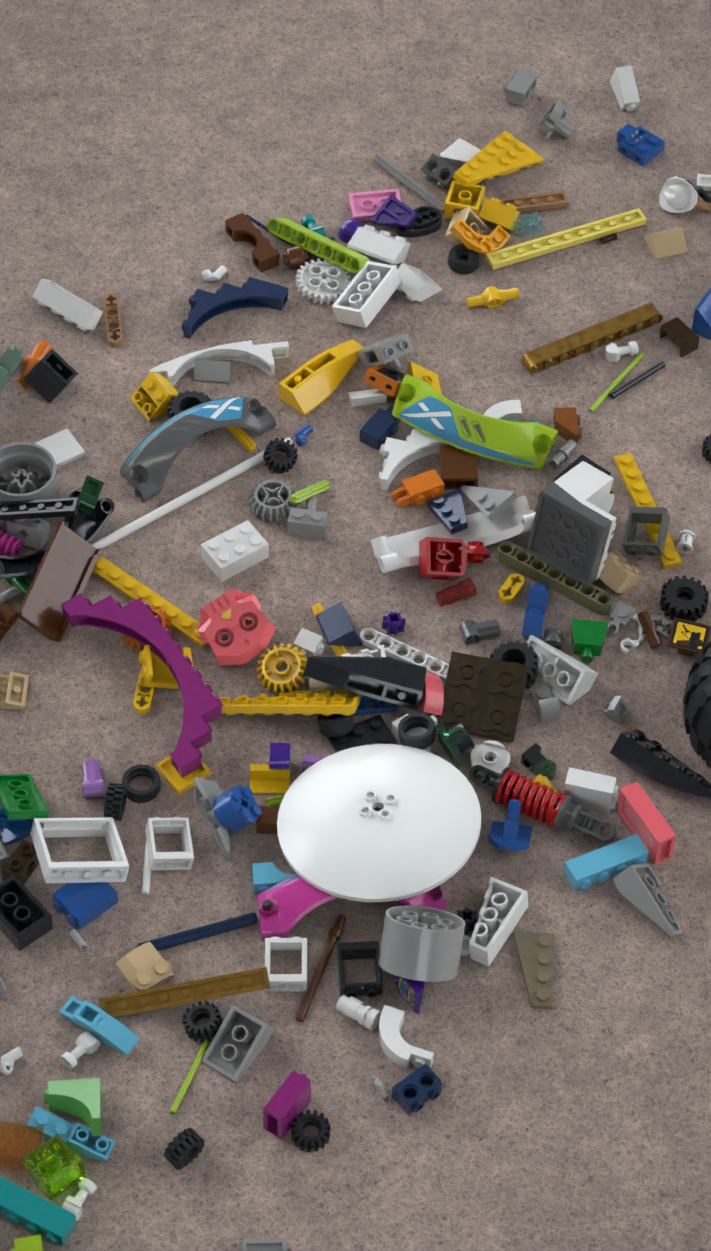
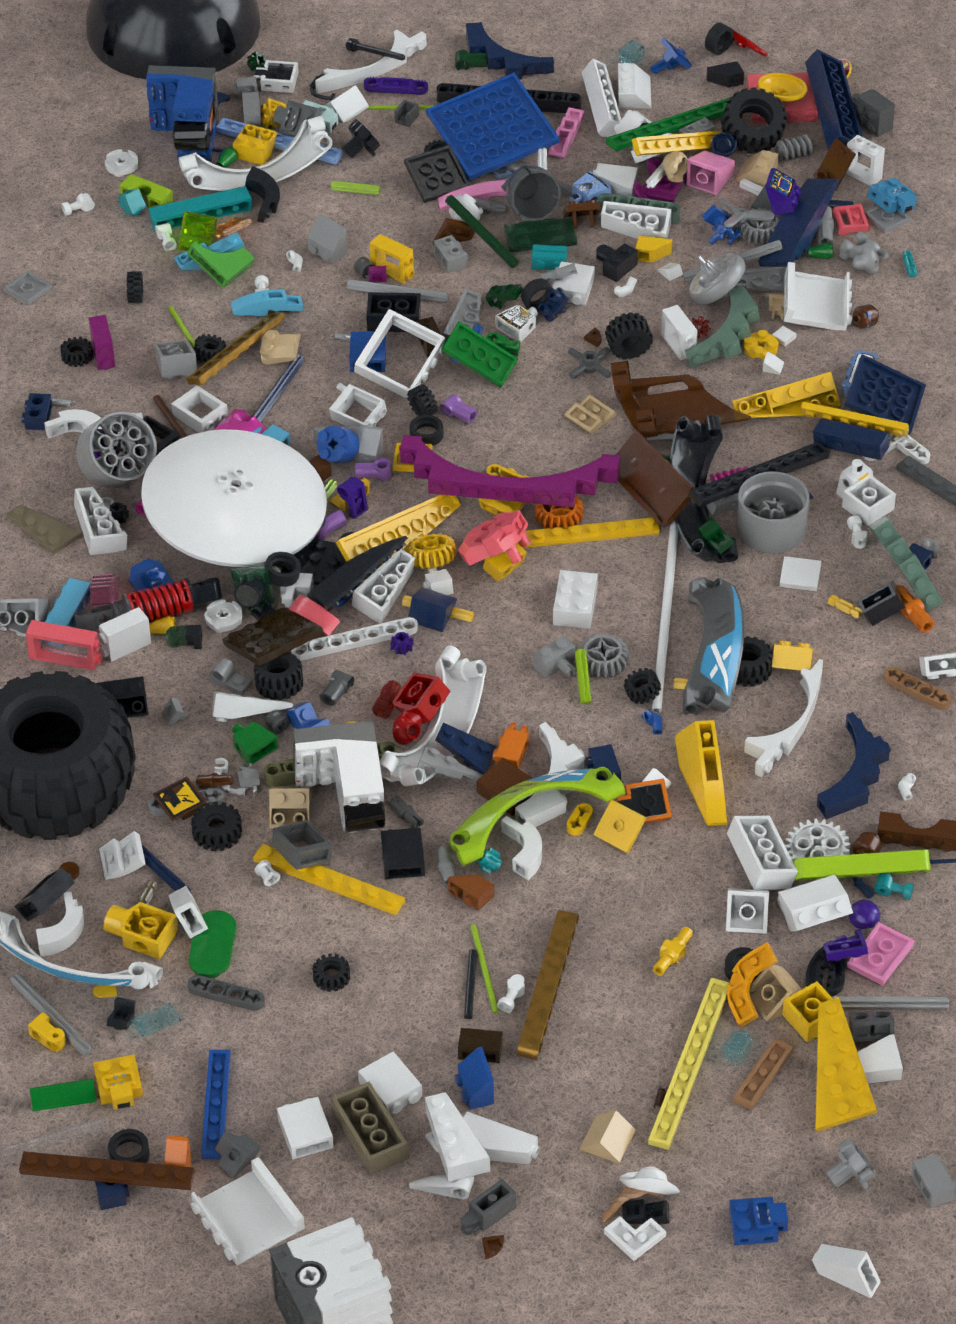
camera: 135 degrees right, 5 degrees down
(69, 404) = (845, 606): none -> yellow axle
(212, 371) = (787, 711): light grey slope -> none
(225, 781) = (379, 469): none -> medium lavender piece
(386, 350) = (677, 812): light grey piece -> none
(498, 213) = (770, 1026): yellow brick -> none
(566, 837) = (104, 589): none -> clear pink brick

